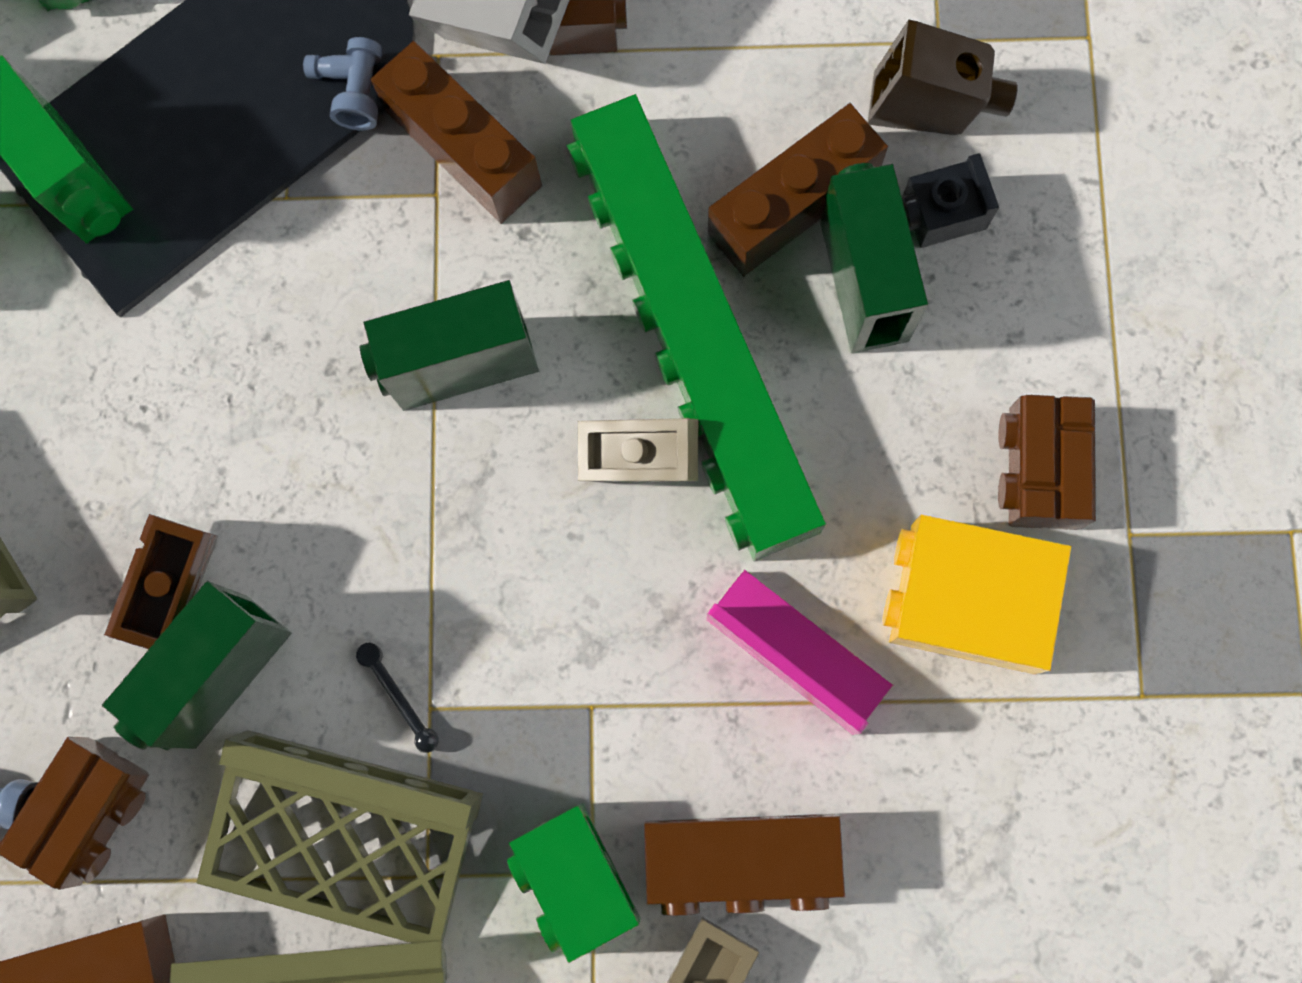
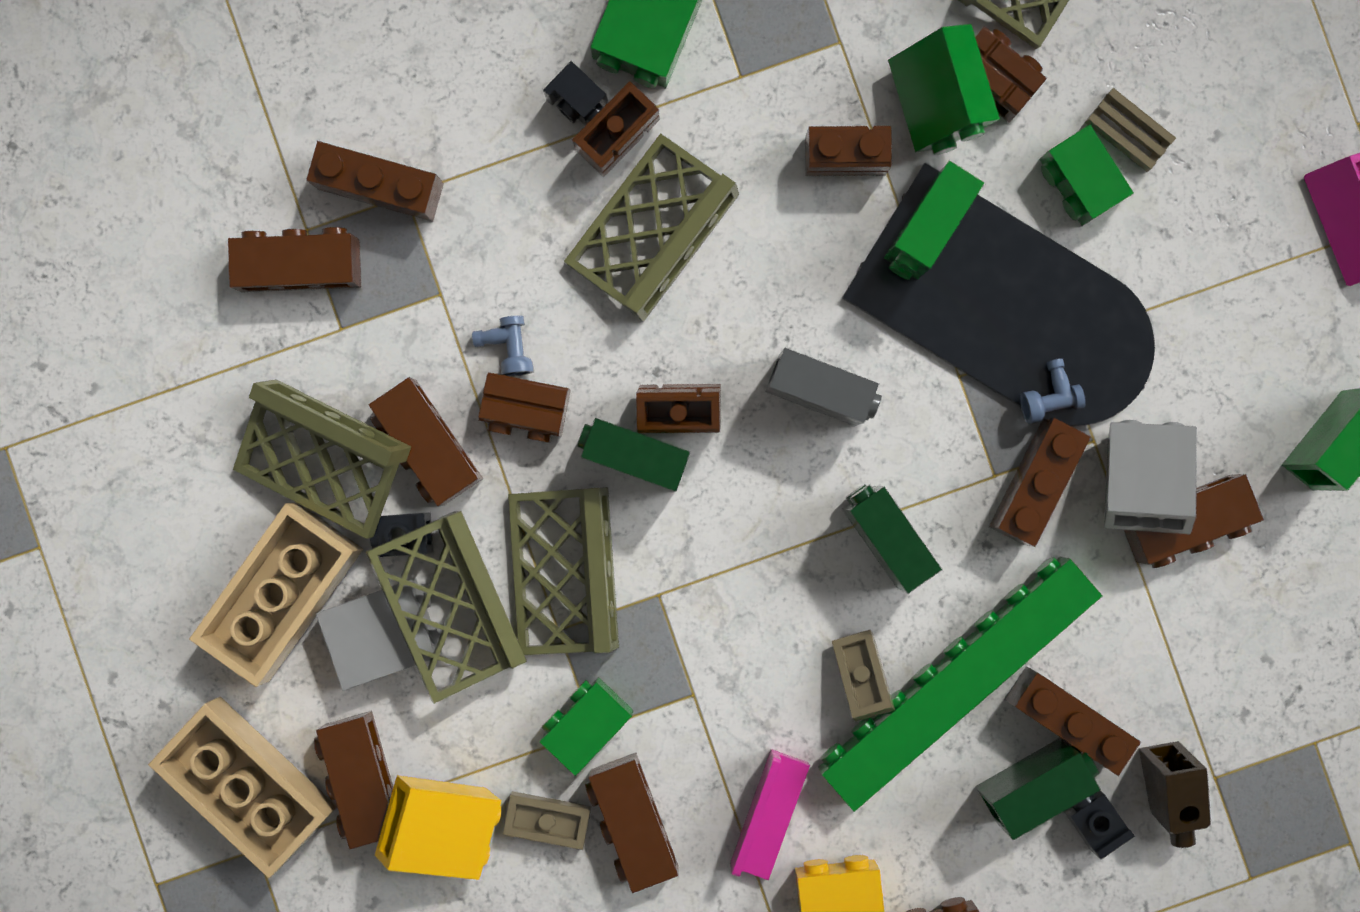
camera: 70 degrees right, 10 degrees up
(209, 371) = (824, 388): none -> dark grey brick
(370, 656) = (640, 600): black hinge -> none

